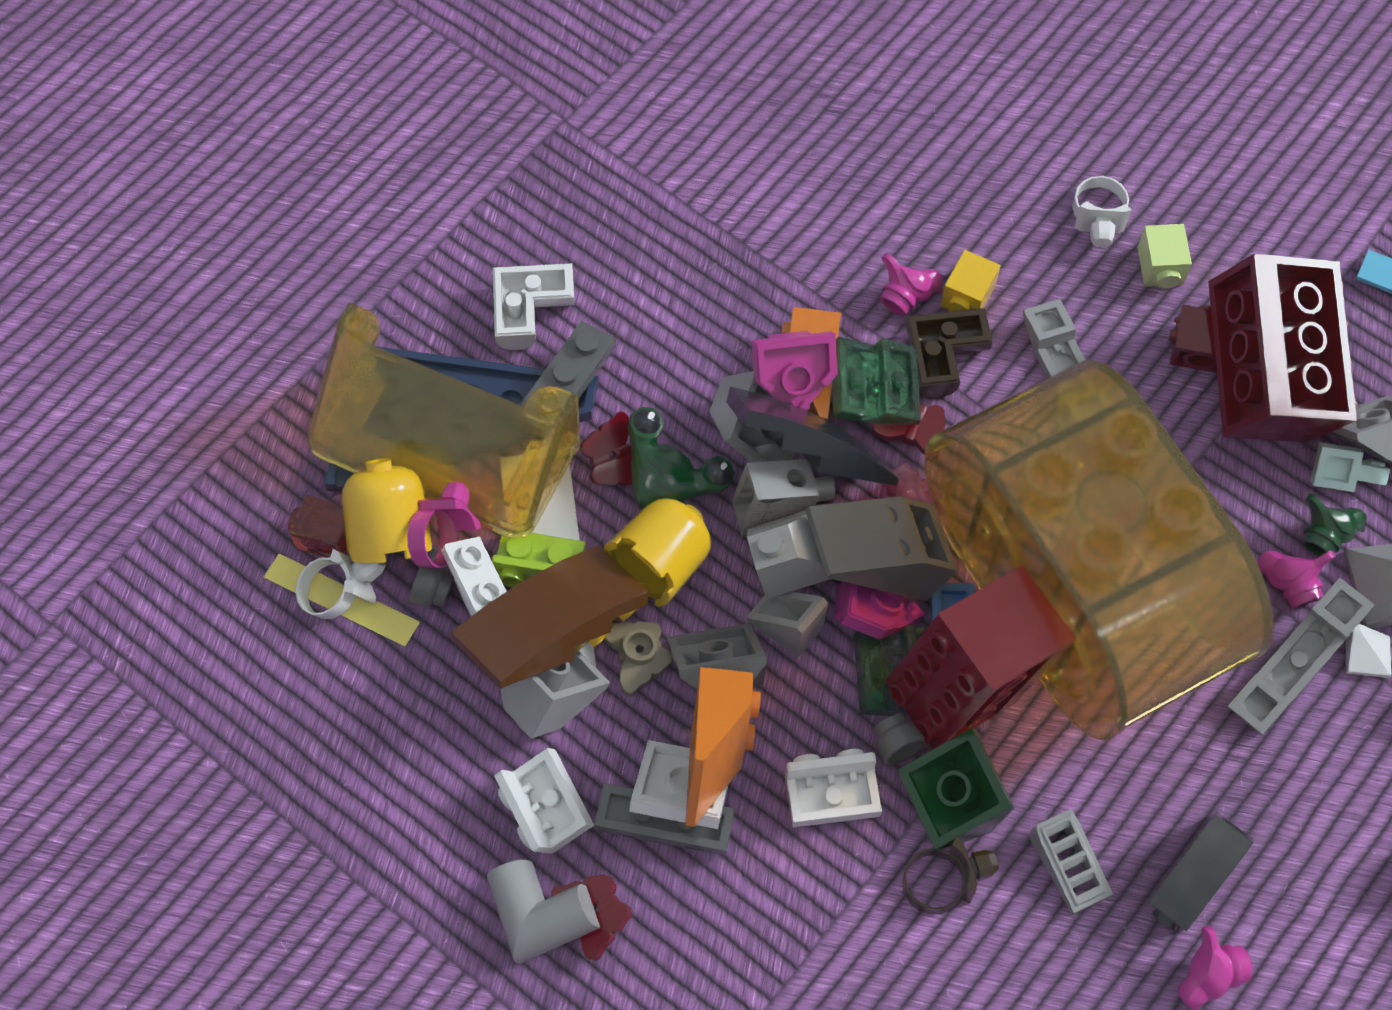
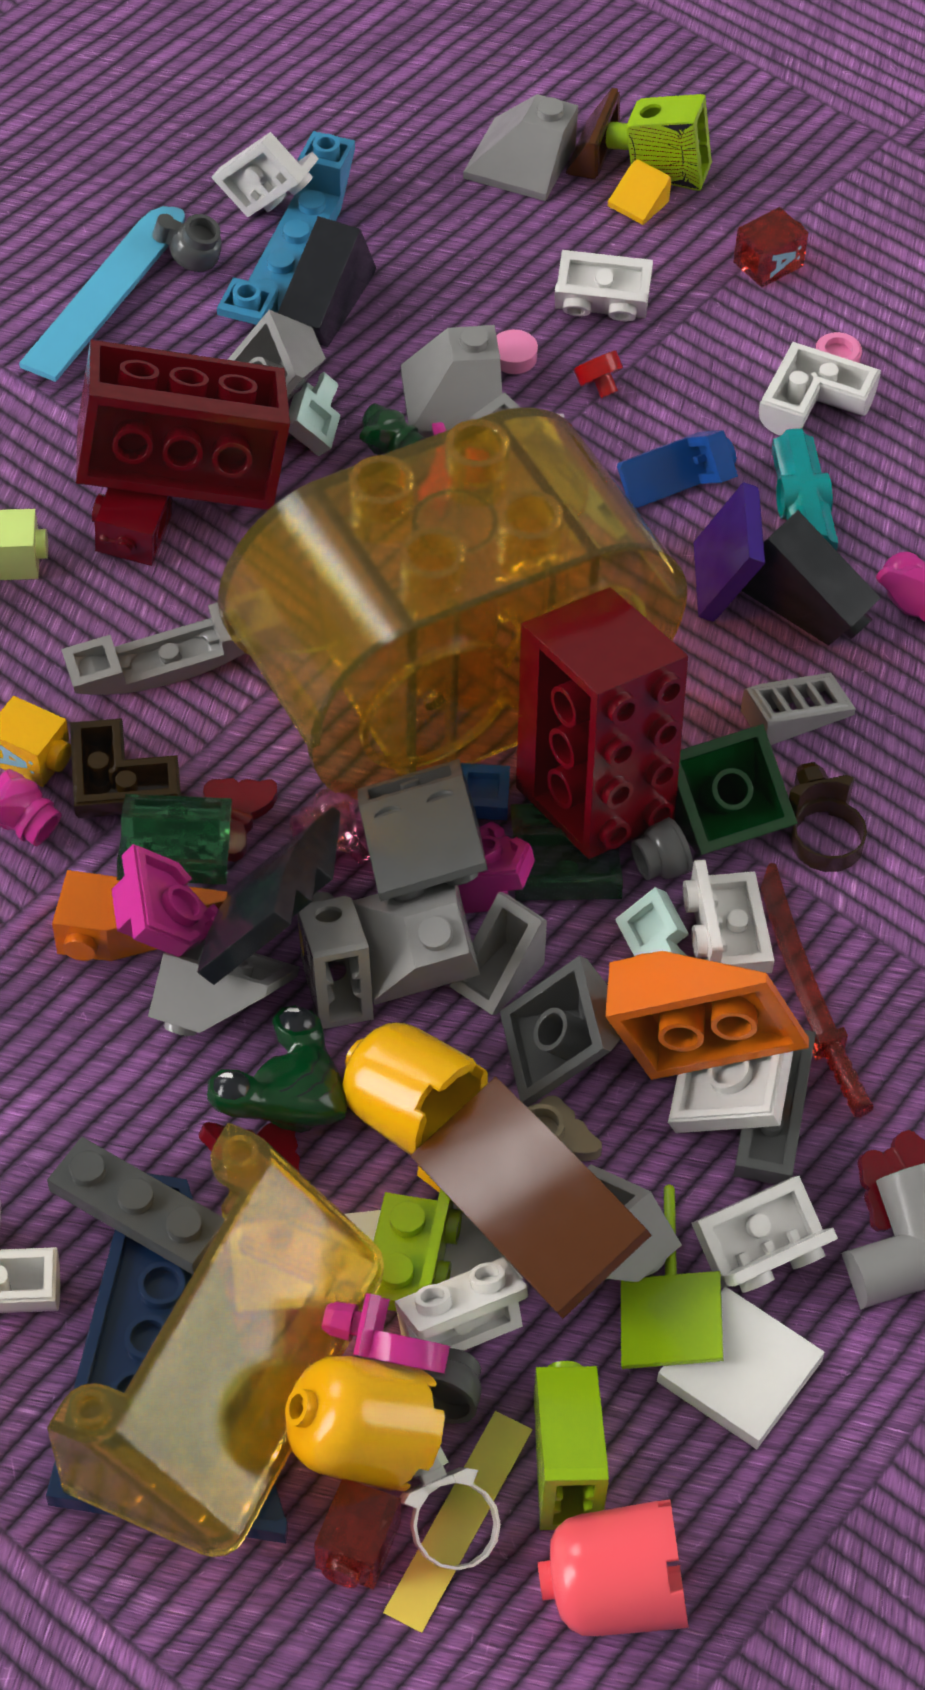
camera: 90 degrees left, 10 degrees down
(276, 689) = (614, 1571): none -> coral cylinder
(374, 656) = (569, 1442): none -> lime slope
(442, 786) = (759, 1374): none -> white tile
(487, 738) = (671, 1315): none -> lime piece
(728, 866) = (829, 1041): none -> clear red sword
(817, 732) = (652, 924): none -> light aqua plate
(1222, 798) = (729, 552): none -> dark purple tile
(1317, 879) = (802, 483): none -> teal piece
(1331, 763) = (678, 466): none -> blue bracket

